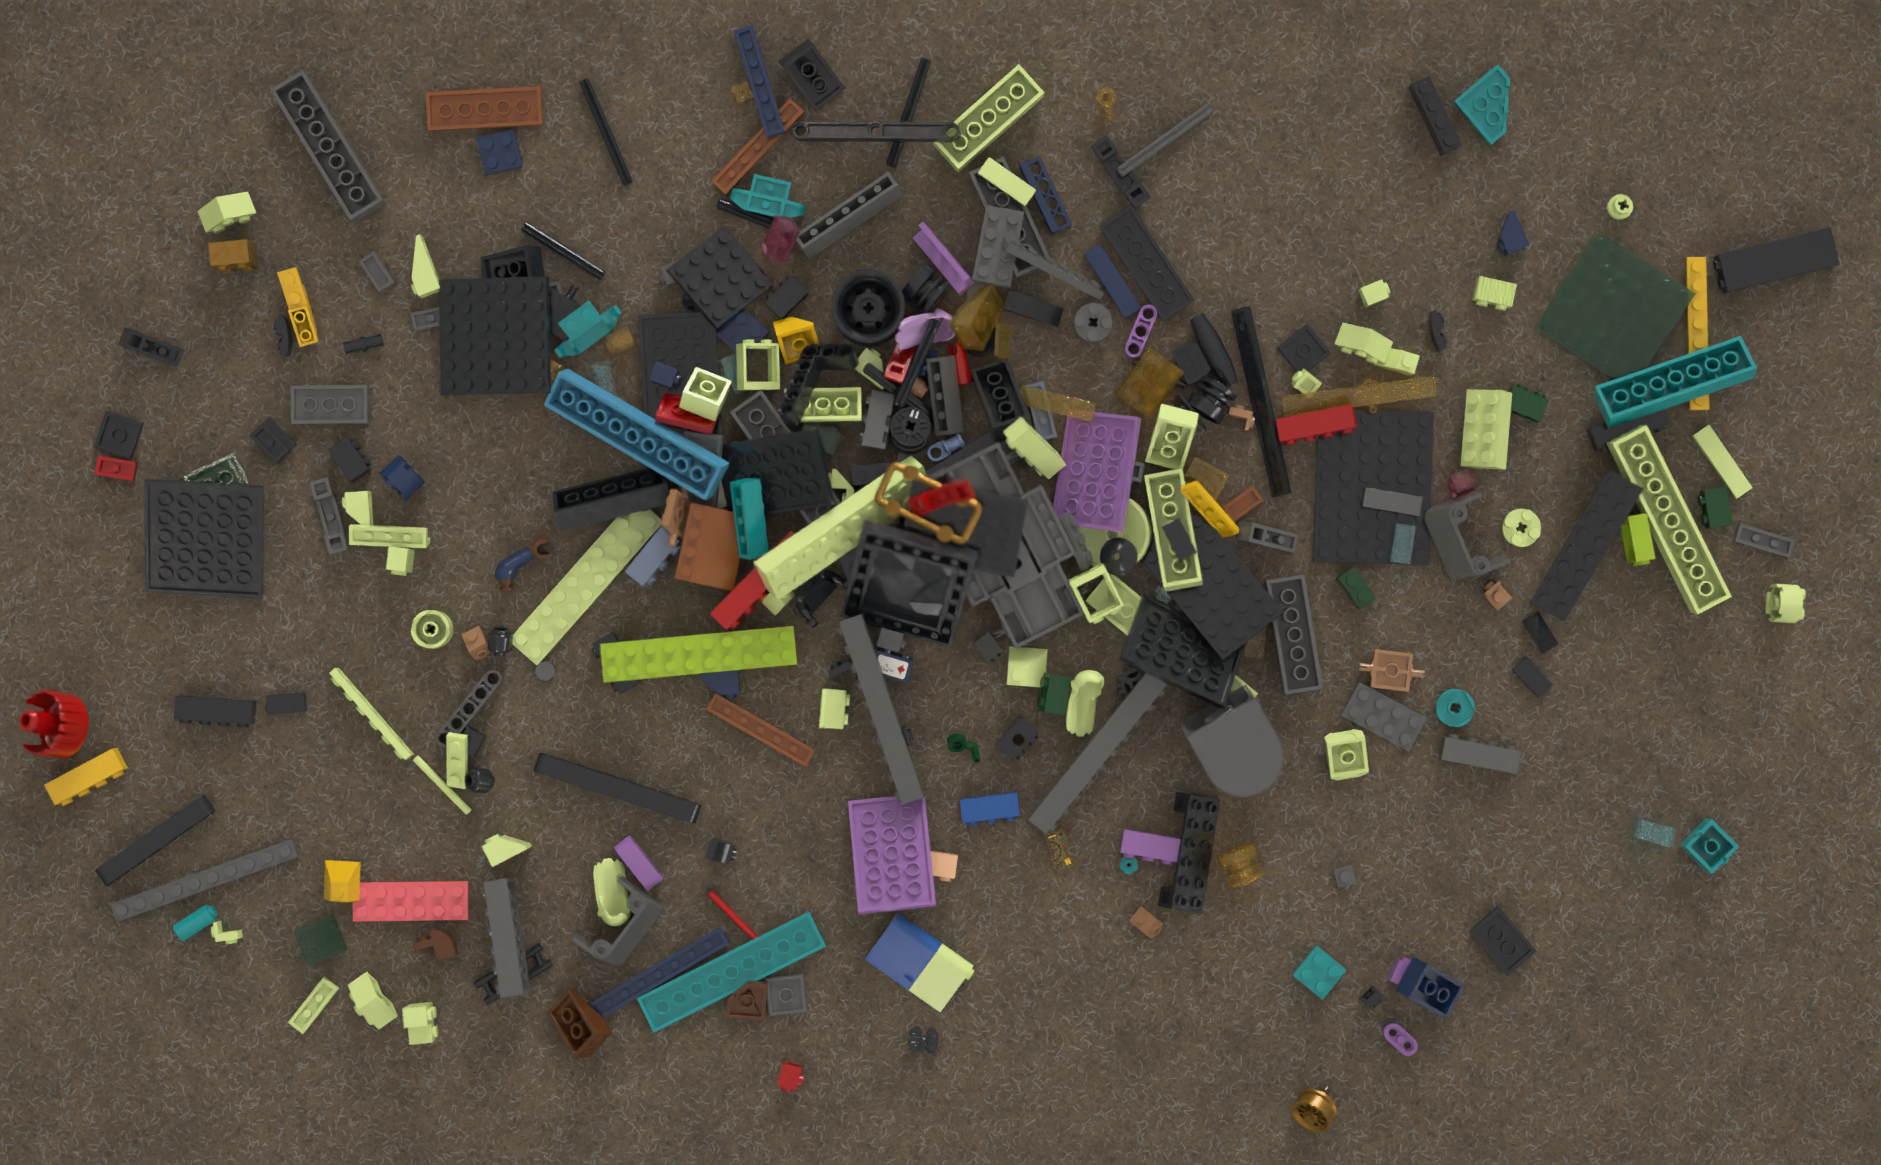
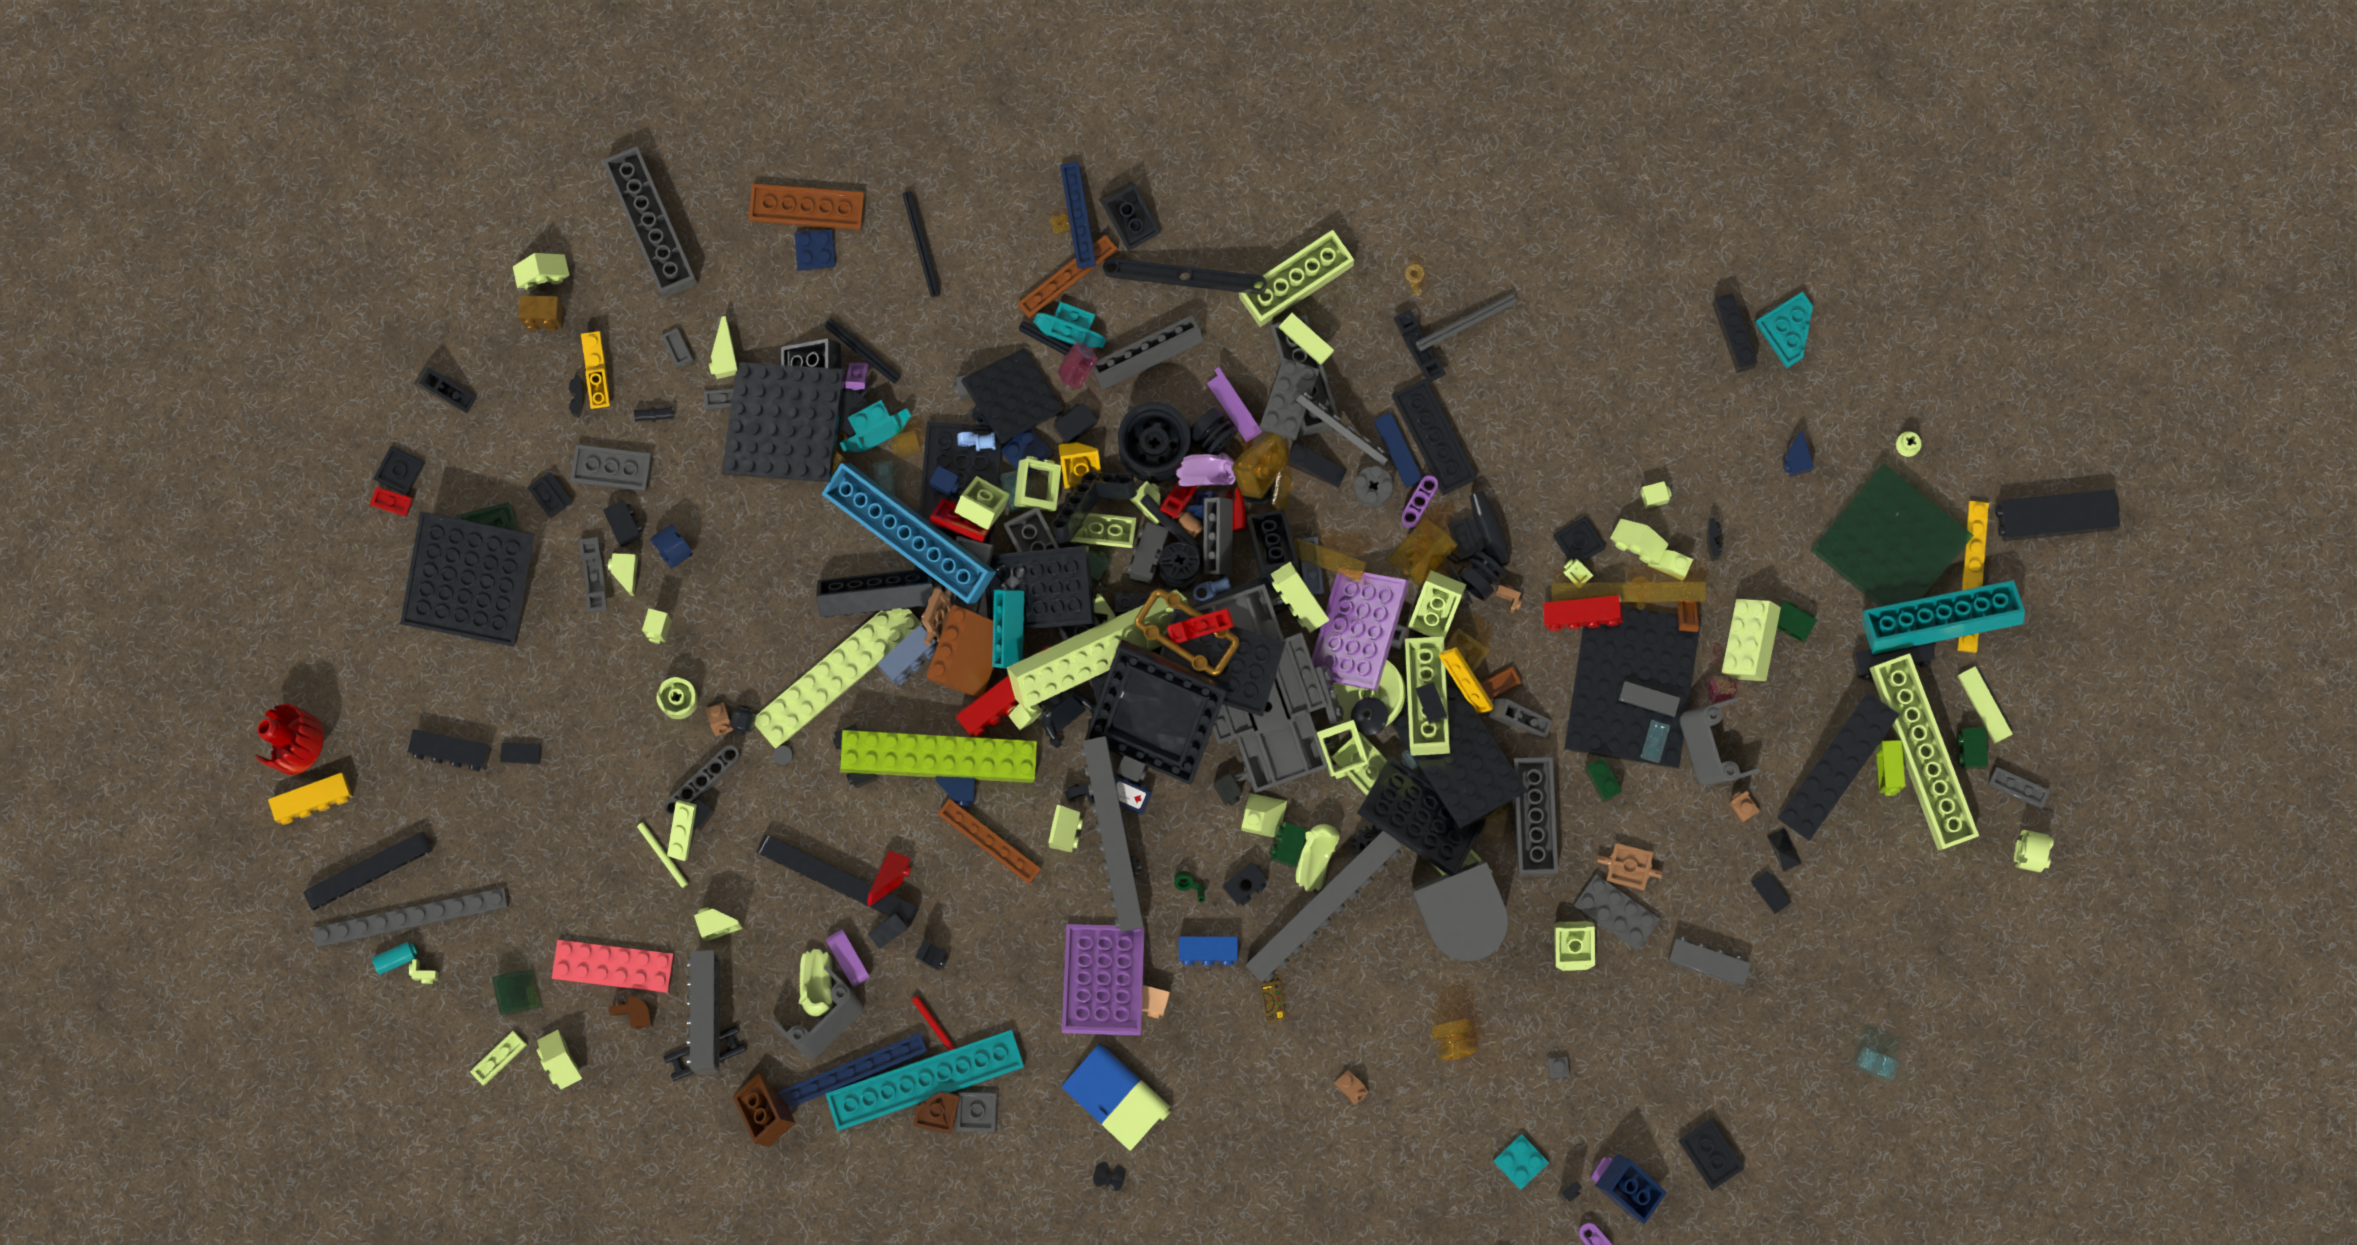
camera: 10 degrees right, 10 degrees down
(342, 881) = (547, 935): yellow slope -> none
(367, 709) = (607, 782): yellowish green plate -> none
(388, 536) = (647, 600): yellowish green fence -> none
(420, 1022) = (604, 1088): yellowish green brick -> none
(479, 780) = (701, 853): black head -> none
(508, 567) = (761, 648): dark blue piece -> none
(561, 278) = (857, 376): none -> medium lavender plate
(668, 778) = (890, 876): none -> red slope
(674, 831) = (888, 930): none -> black tile
(695, 330) = (981, 442): none -> light blue connector
(790, 1076) = (969, 1195): red brick -> none
(909, 108) = (1220, 260): black axle -> none
(917, 362) = (1194, 500): black axle -> none
(1038, 195) = (1336, 360): dark blue fence -> none
(1128, 870) = (1341, 1031): teal plate -> none
(1149, 846) = (1364, 1010): medium lavender brick -> none
(1193, 854) = (1407, 1023): black bracket -> none
(1261, 401) = (1530, 586): black plate -> none
(1420, 413) = (1688, 616): none -> dark orange tile
(1464, 712) = (1694, 903): teal plate -> none
(1494, 292) = (1774, 510): yellowish green brick -> none
(1516, 537) = (1782, 734): yellowish green plate -> none
(1709, 846) = (1931, 1084): teal brick -> none

